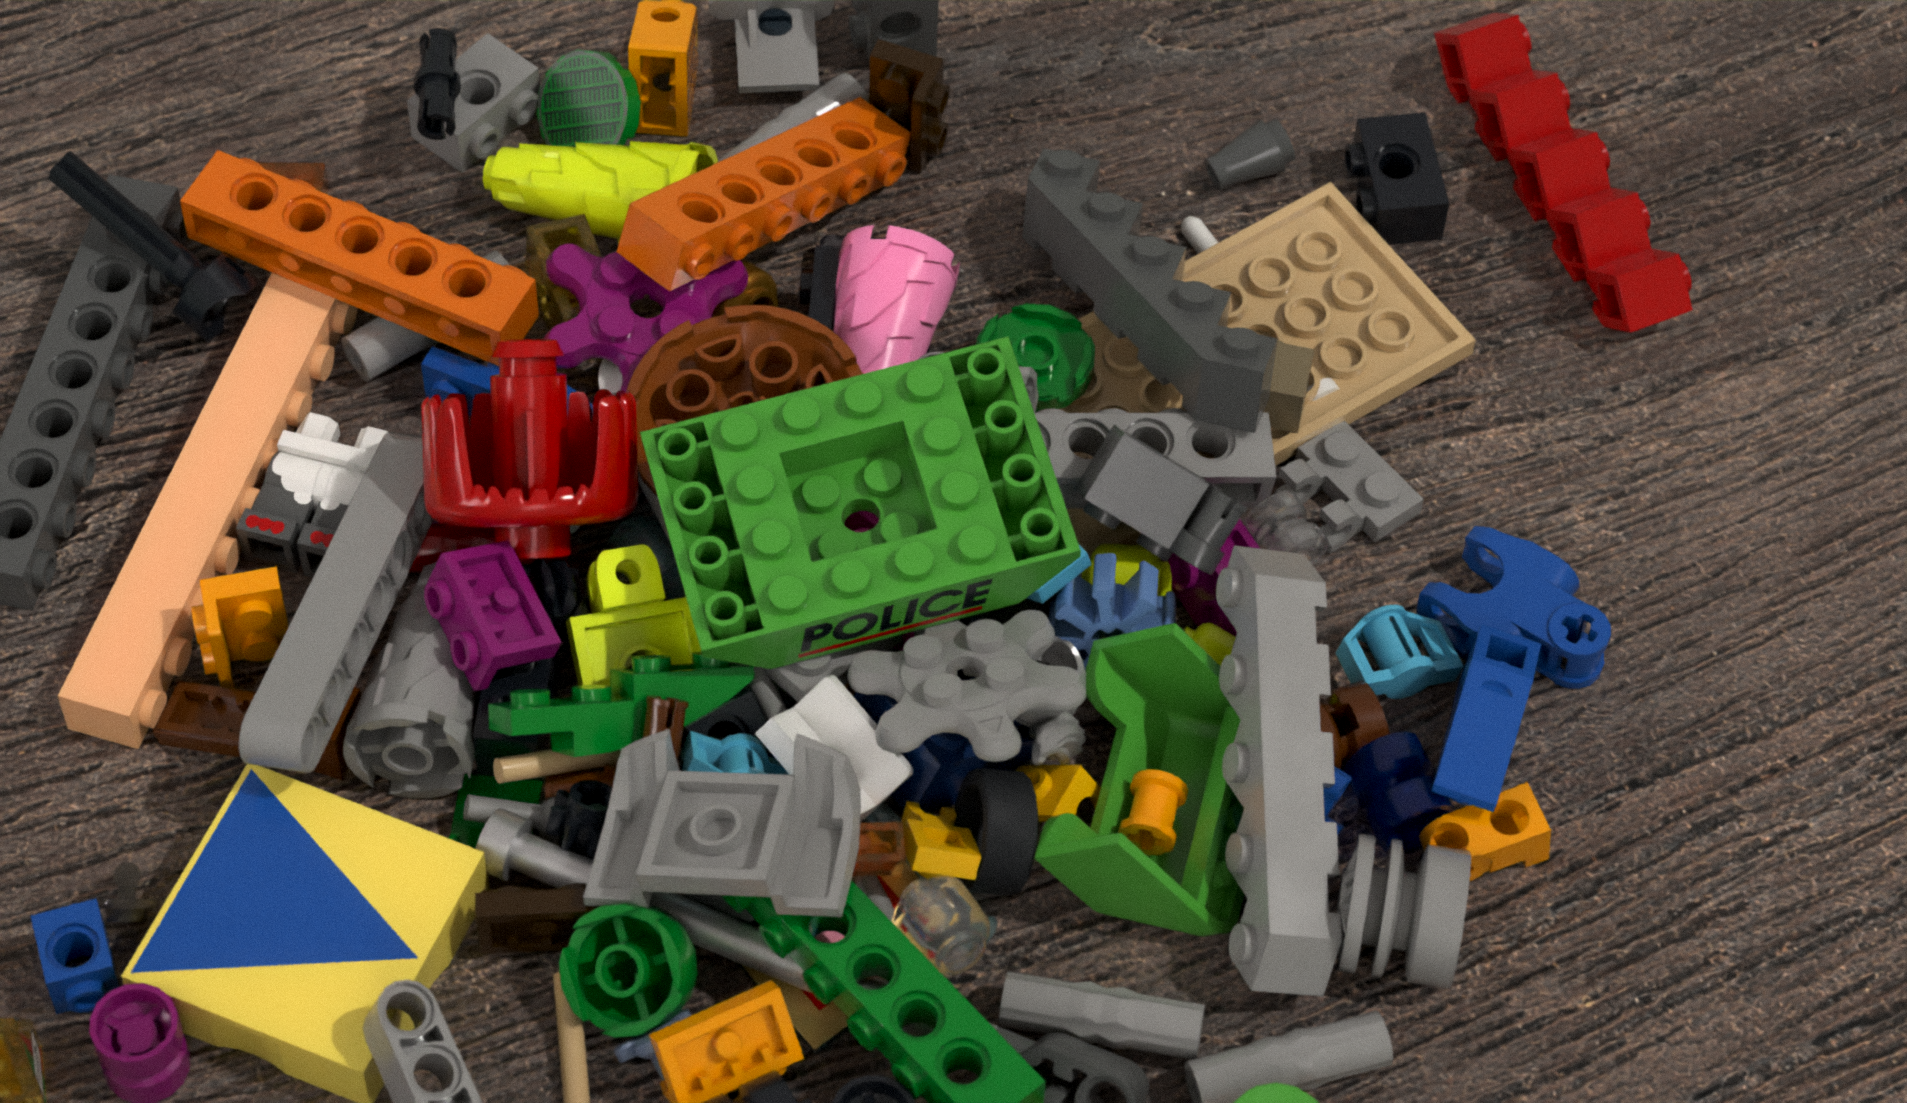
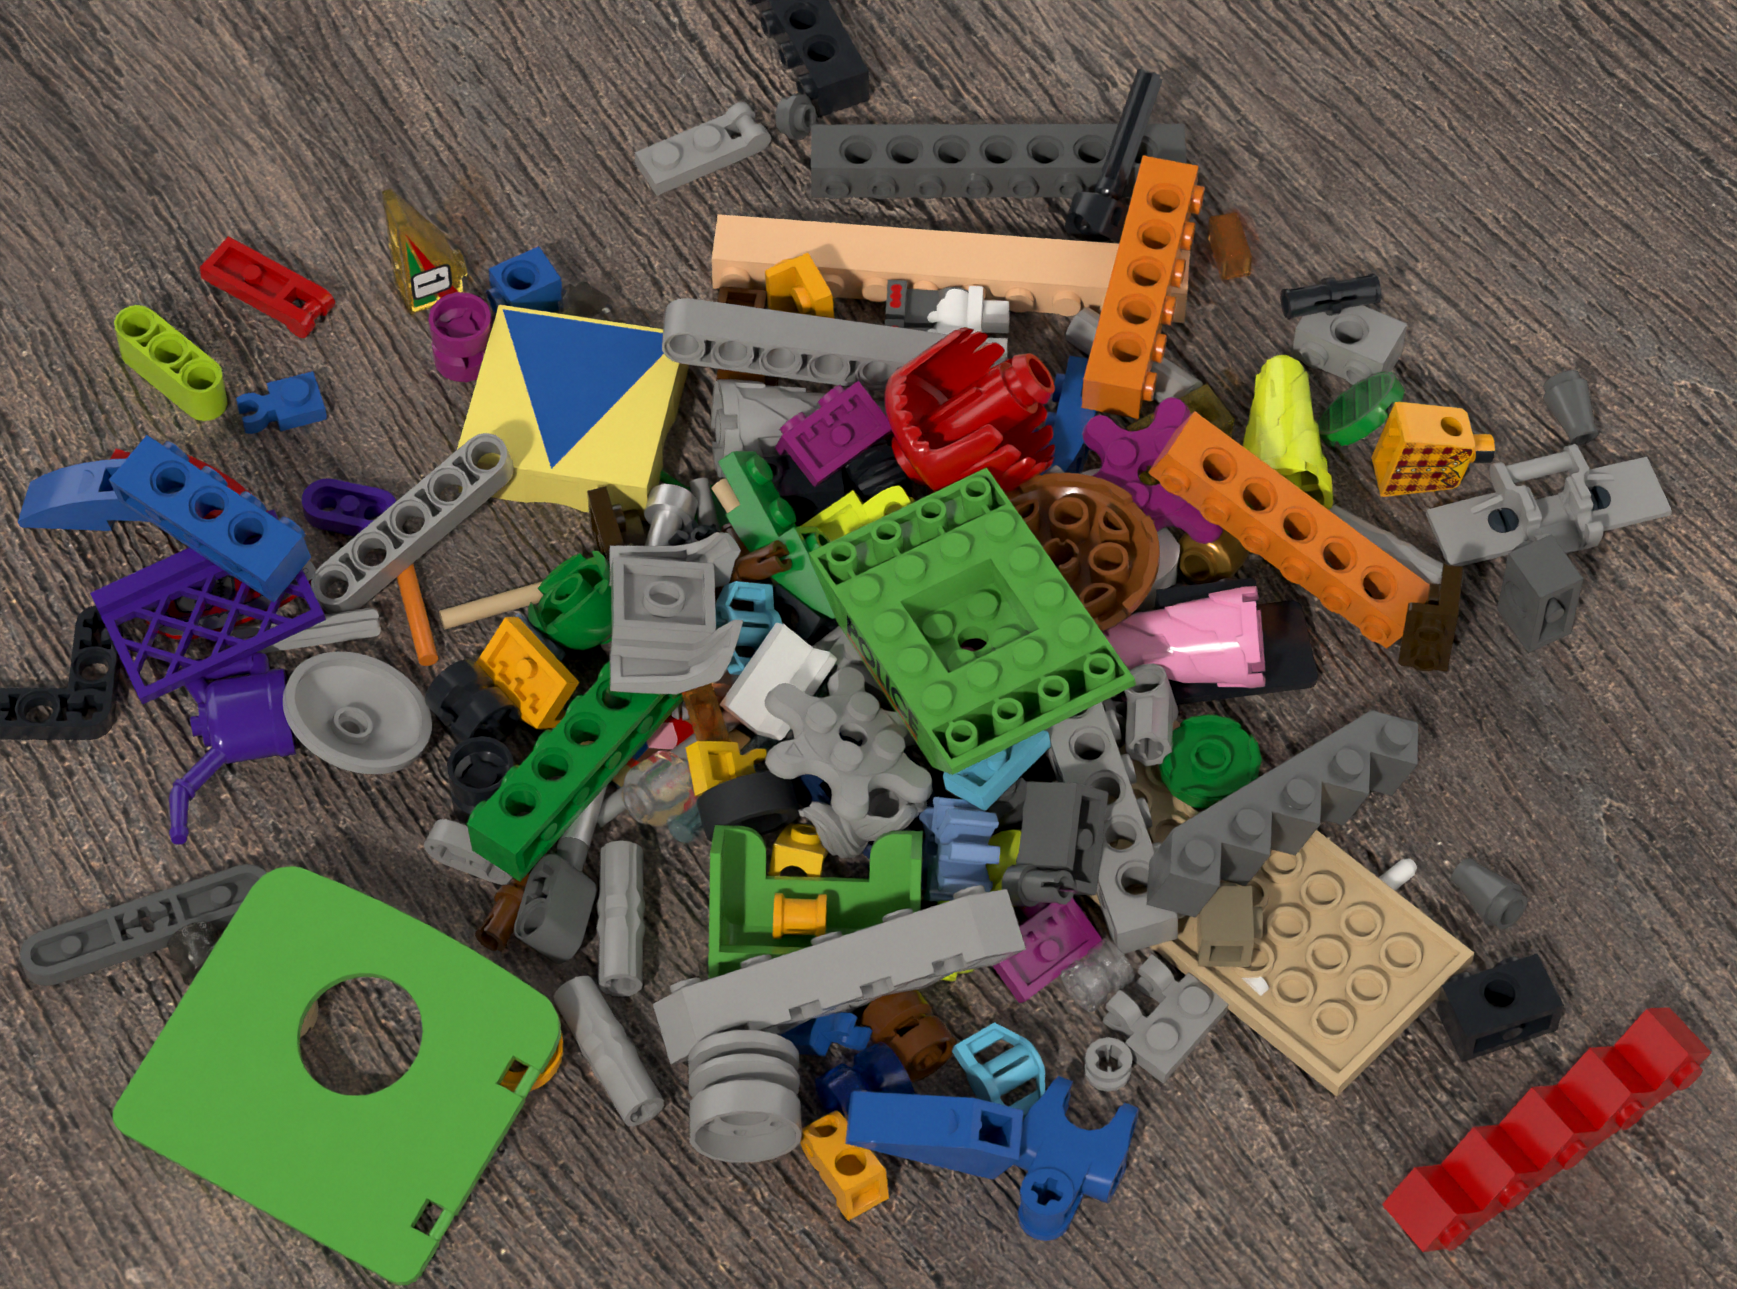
camera: 80 degrees right, 0 degrees up
(1392, 569) = (1108, 1048): none -> light grey bush

